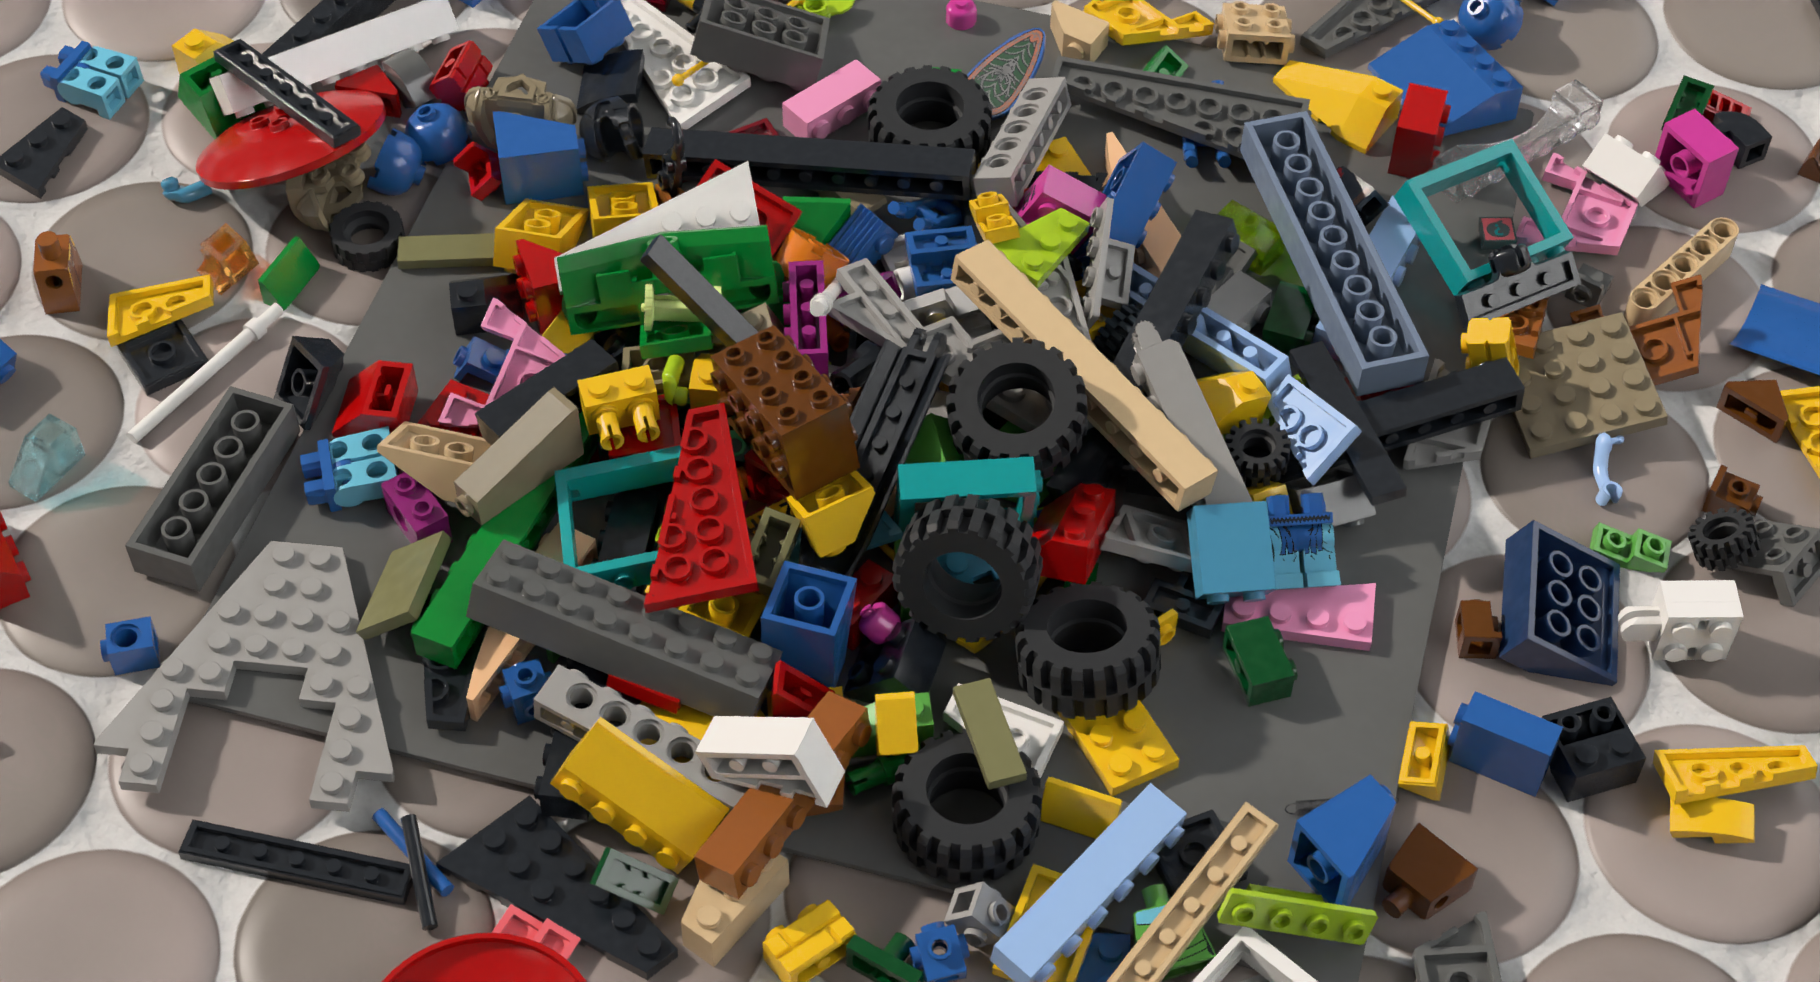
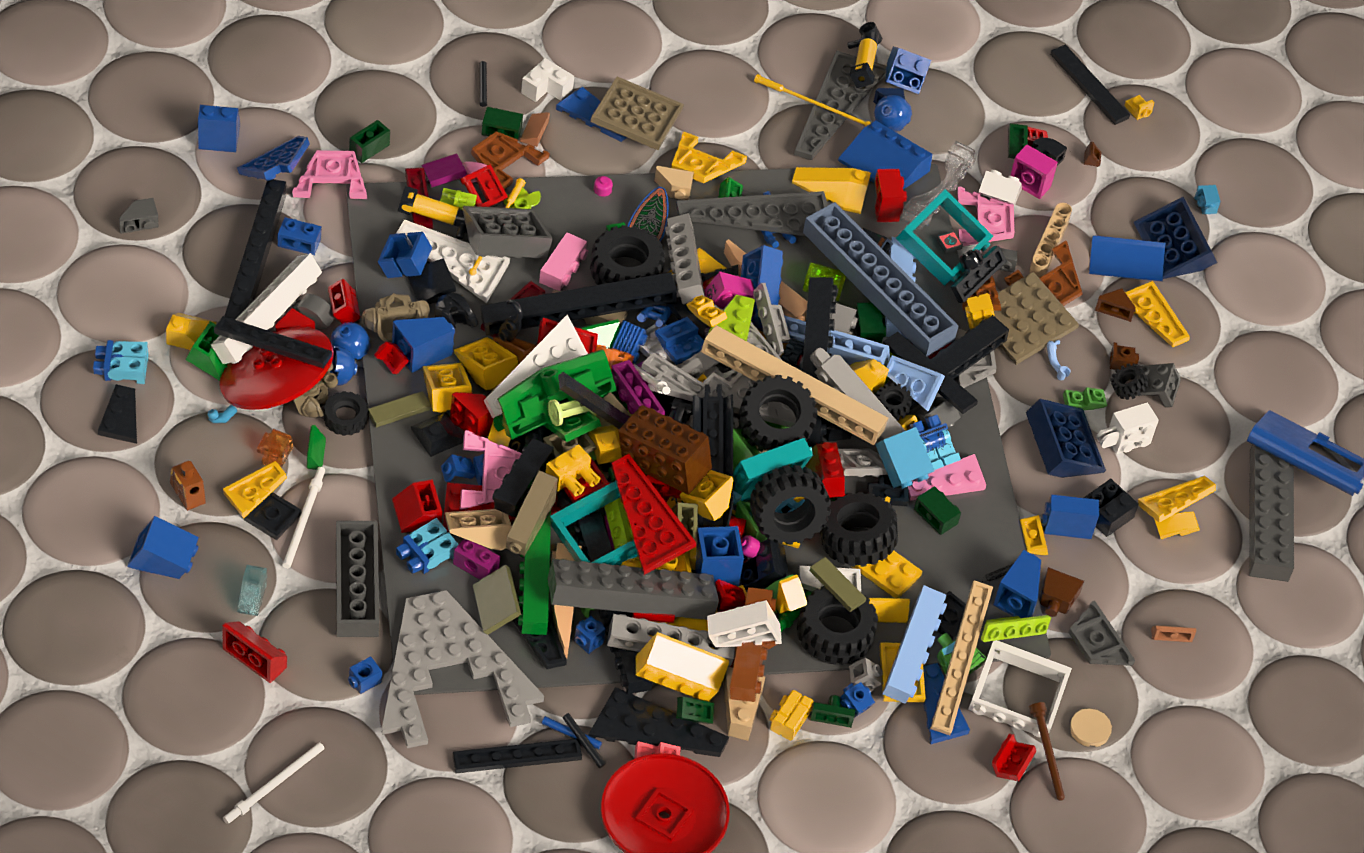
camera: 30 degrees left, 0 degrees up
(309, 376) = (371, 503): black slope -> none
(670, 377) = (587, 446): lime arm -> none
(1254, 33) = (770, 156): tan brick -> none
(1477, 630) = (1031, 463): reddish brown brick -> none

